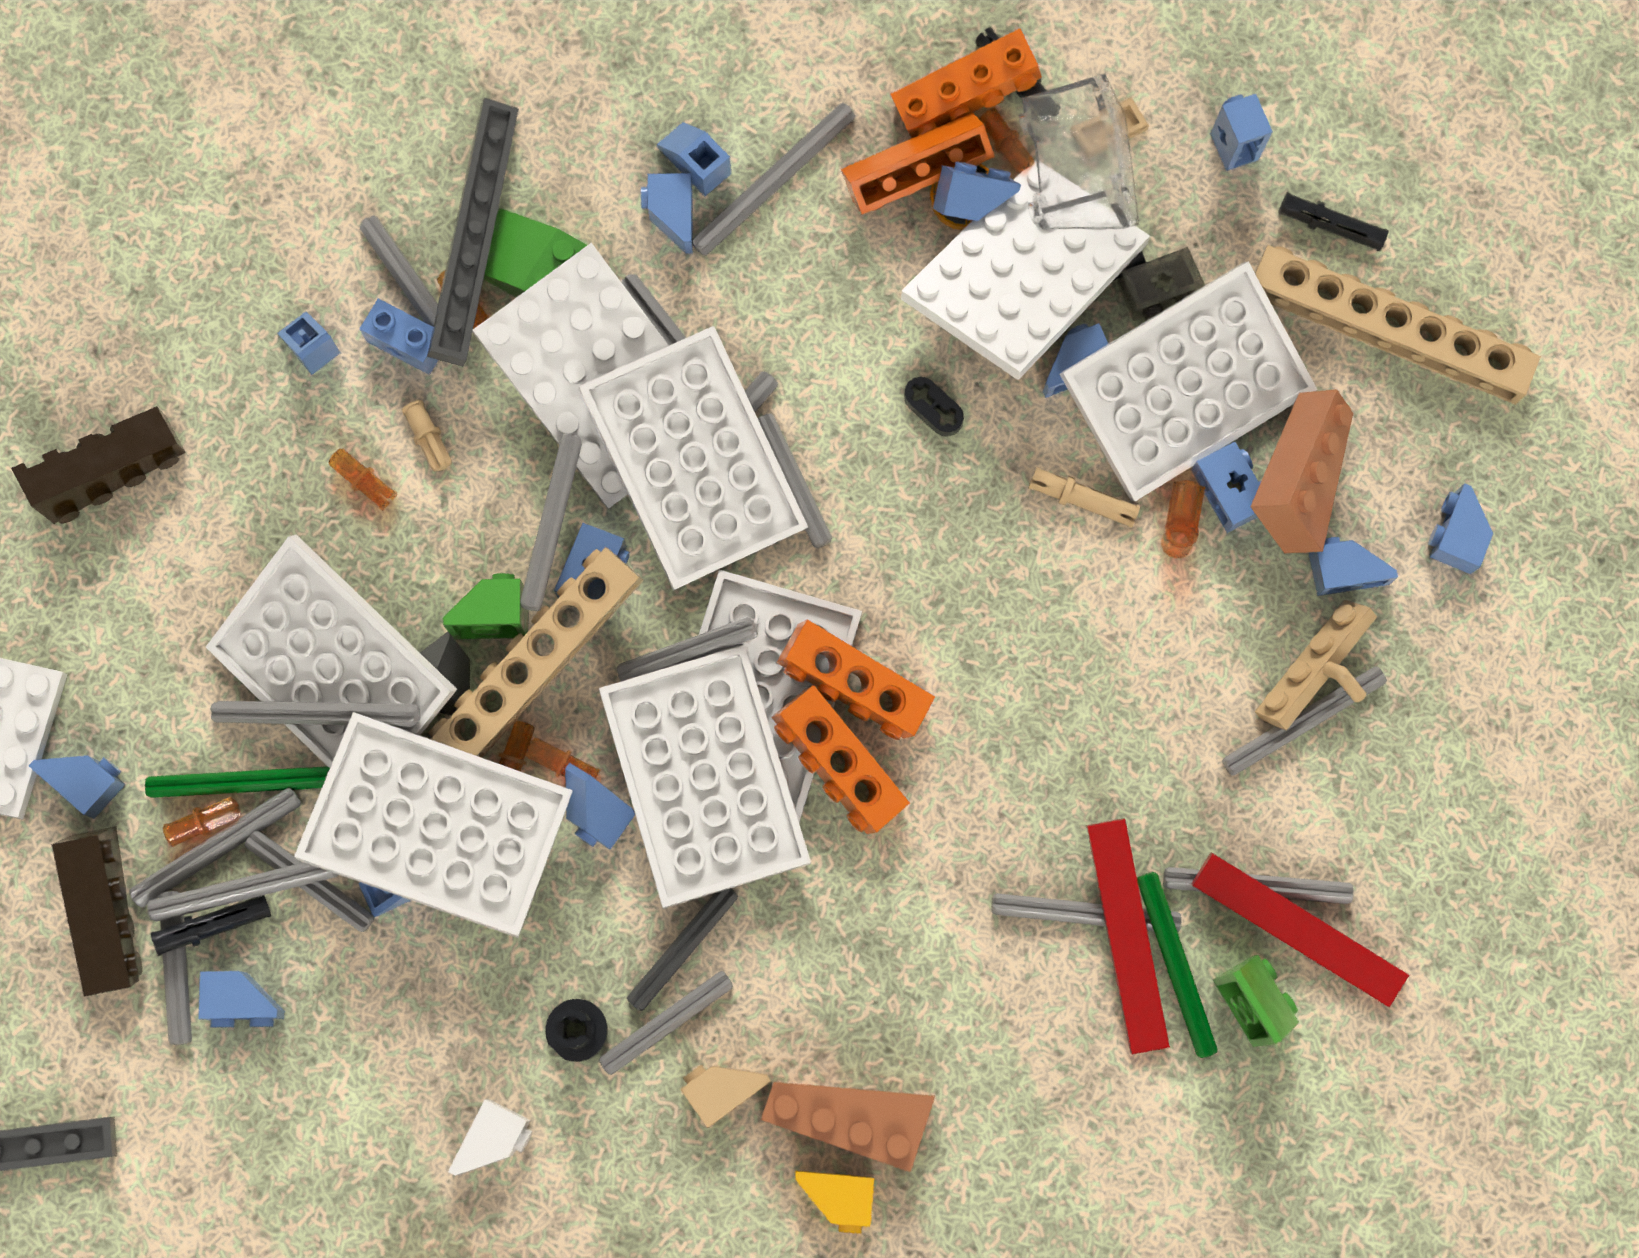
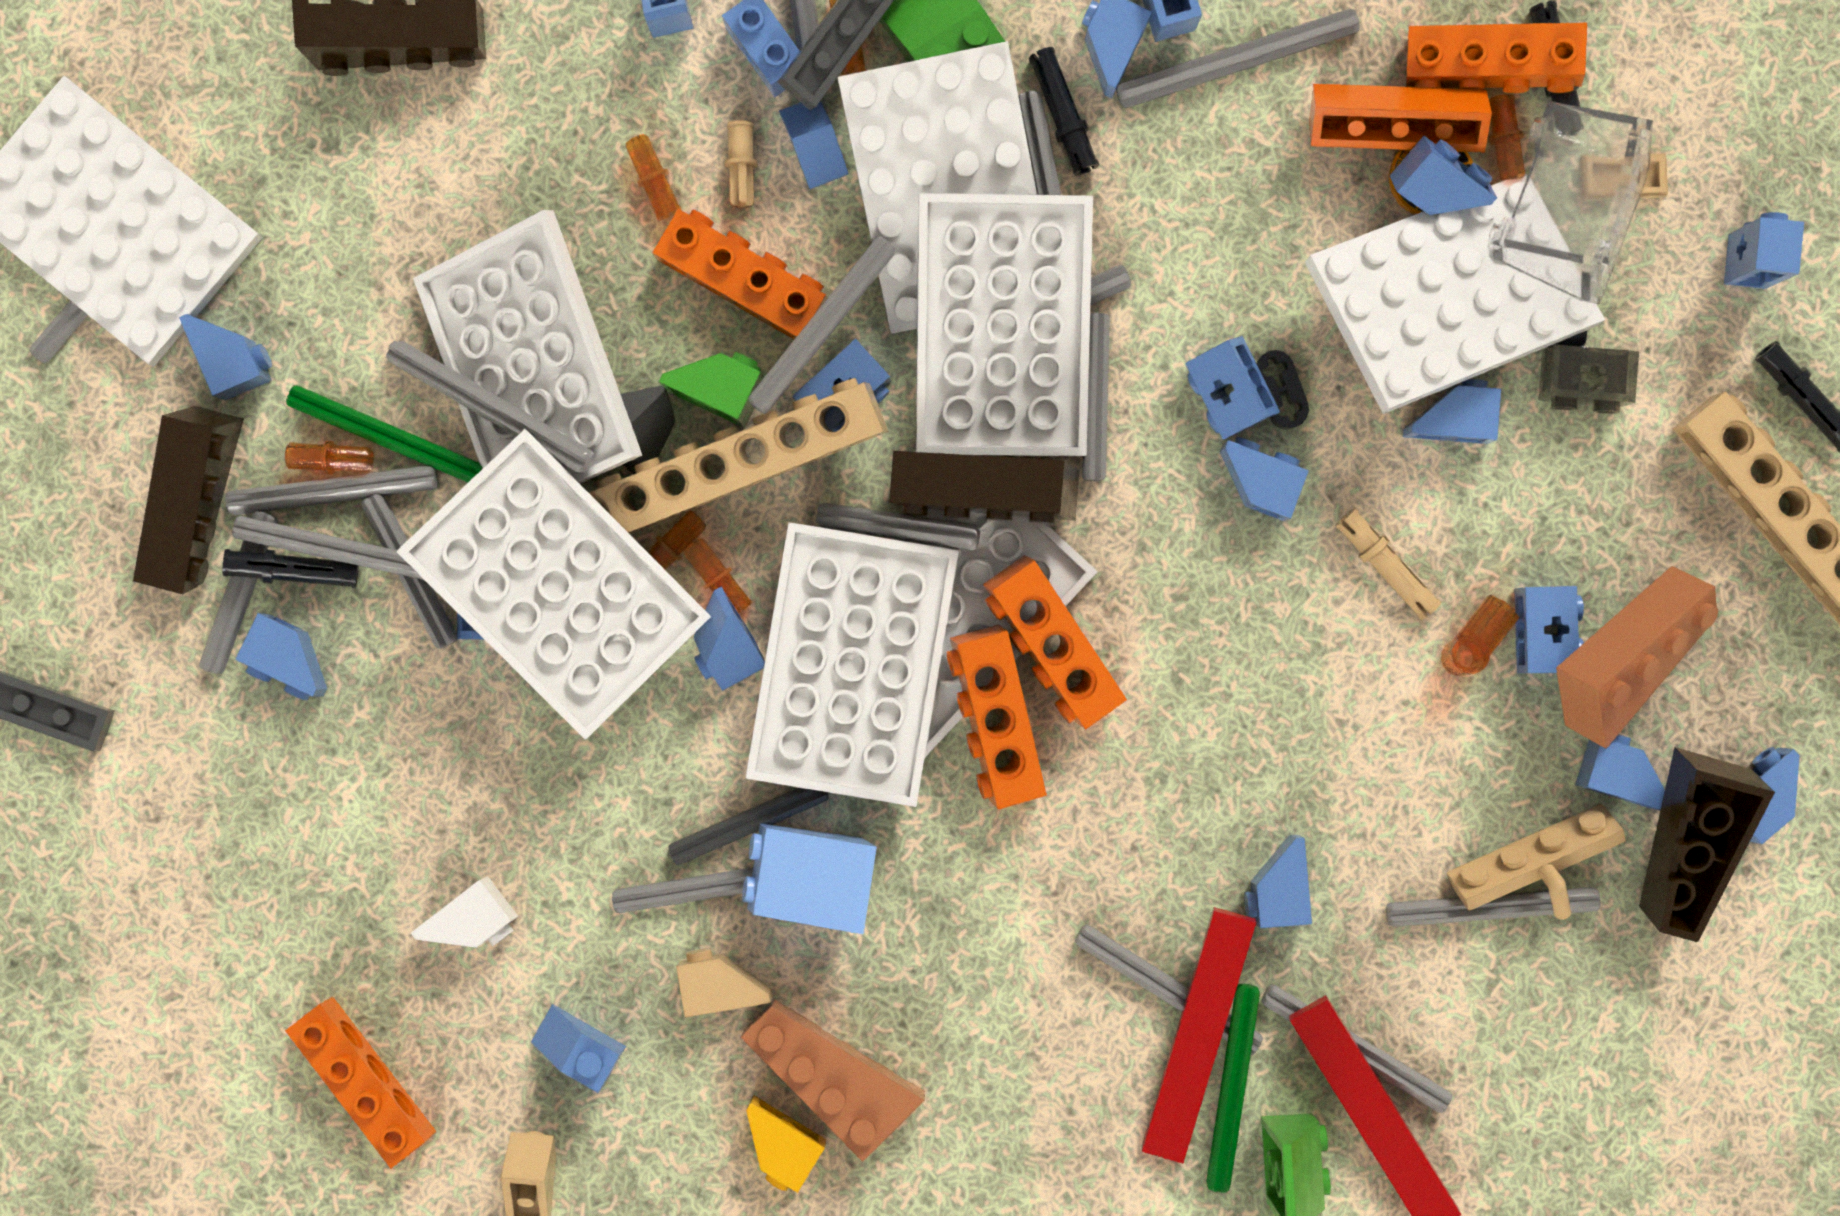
camera: 30 degrees right, 10 degrees up
(465, 519) = (738, 274): none -> orange brick
(478, 393) = (814, 143): none -> medium blue slope
(582, 1047) = (616, 842): black piece -> none
(631, 1202) = (577, 1048): none -> medium blue slope
(671, 288) = (1070, 127): none -> black pin
(739, 584) = (985, 485): none -> dark brown wedge
(753, 961) = (810, 877): none -> light blue slope
(912, 422) = (1251, 398): none -> medium blue brick
(956, 479) = (1264, 481): none -> medium blue slope
(1132, 786) = (1281, 888): none -> medium blue slope
(1188, 381) = (1563, 497): white plate -> none
(1430, 585) = (1699, 840): none -> dark brown wedge

